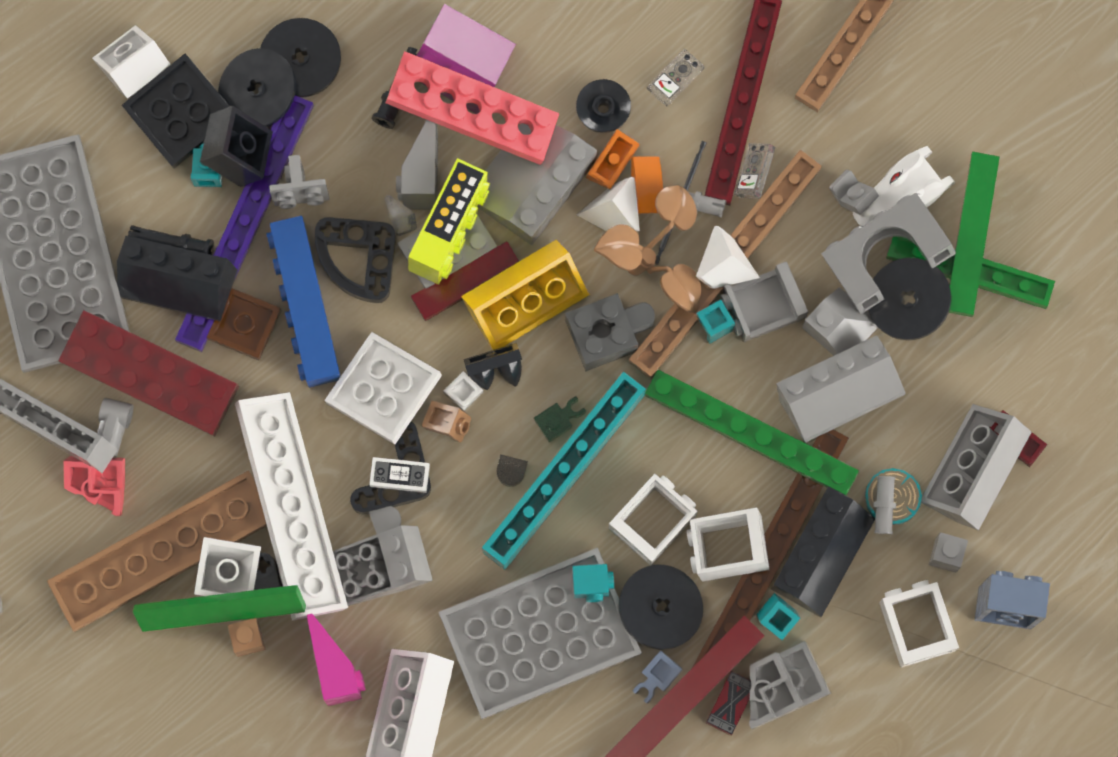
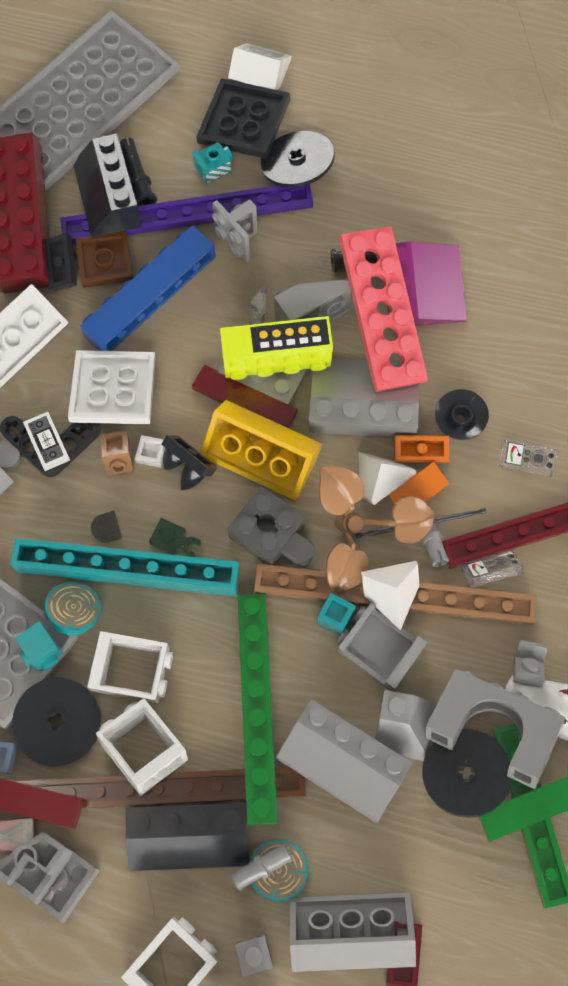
camera: 60 degrees right, 5 degrees down
(228, 363) = (60, 262): none -> black tile
(236, 146) = (236, 164): black brick -> none
(310, 39) = (350, 191): black piece -> none
(368, 241) = (230, 308): black beam -> none
(570, 538) = (72, 608): none -> tile
(778, 616) = (101, 830): teal brick -> none

